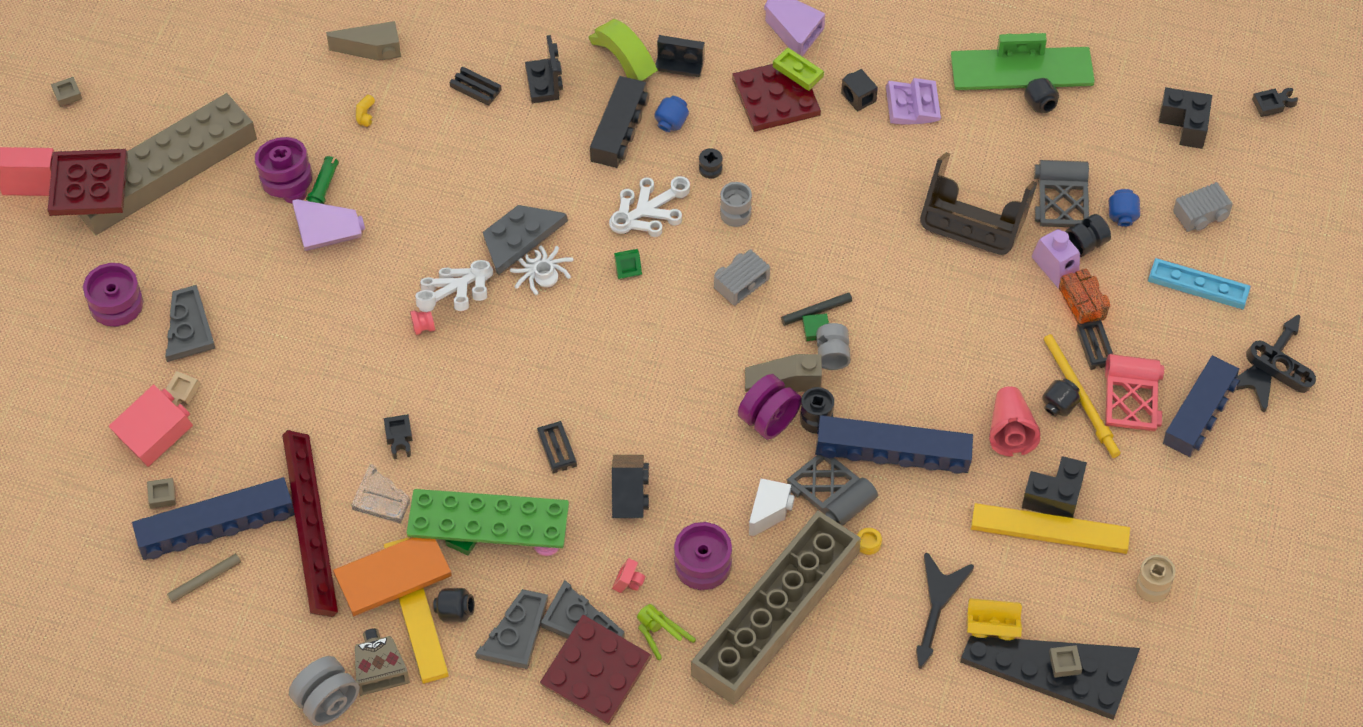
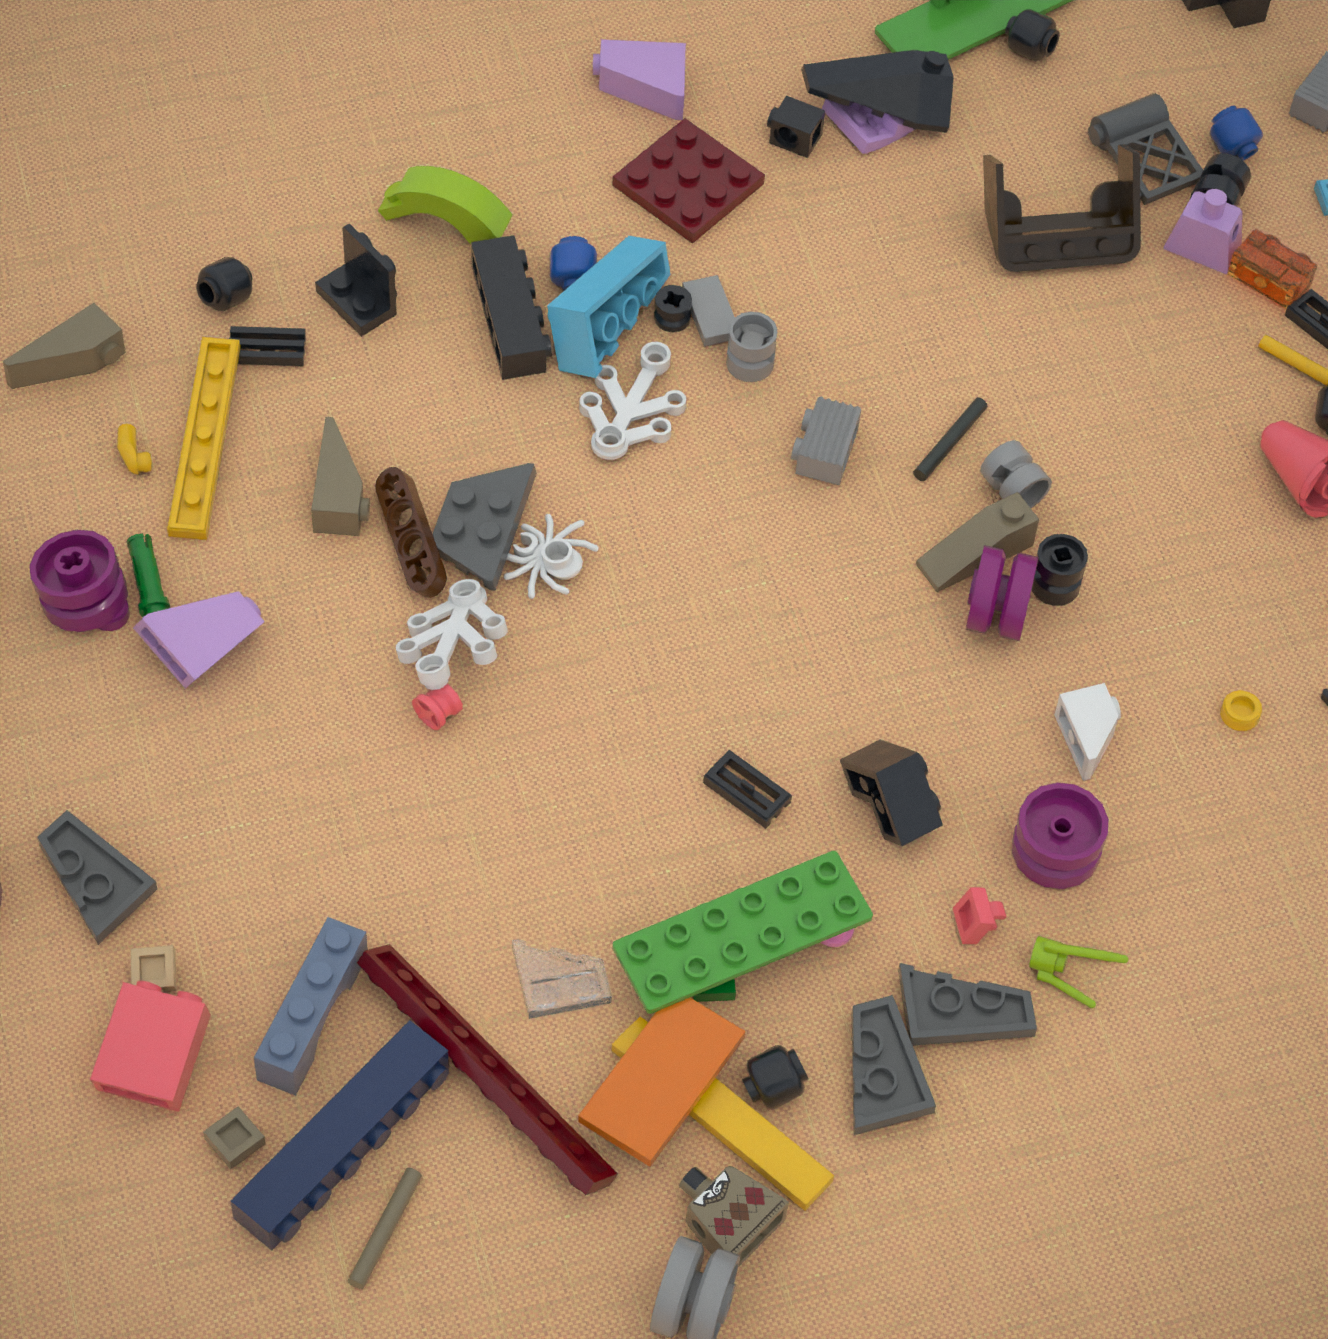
camera: 35 degrees left, 0 degrees up
(220, 458) = (295, 1031): none -> sand blue arch
(398, 434) = (518, 876): black plate -> none
(405, 121) = (204, 438): none -> yellow tile
(452, 183) = (338, 490): none -> dark tan slope
(470, 243) = (414, 529): none -> reddish brown beam
(474, 41) = (224, 283): none -> black head
(596, 669) = (1031, 1063): dark red plate -> none
(628, 263) = (663, 492): green tile -> none
(670, 141) = (605, 302): none -> medium azure wedge
(680, 56) = (530, 181): black bracket -> none
(733, 169) = (710, 309): none -> light grey tile
(775, 607) = (1202, 858): dark tan brick -> none
(798, 68) = (704, 130): lime plate -> none
(812, 323) = (965, 462): green tile -> none
(846, 500) = (1179, 674): dark grey piece -> none
(894, 444) = (1186, 567): dark blue brick -> none
(930, 89) = (901, 83): none -> black wedge

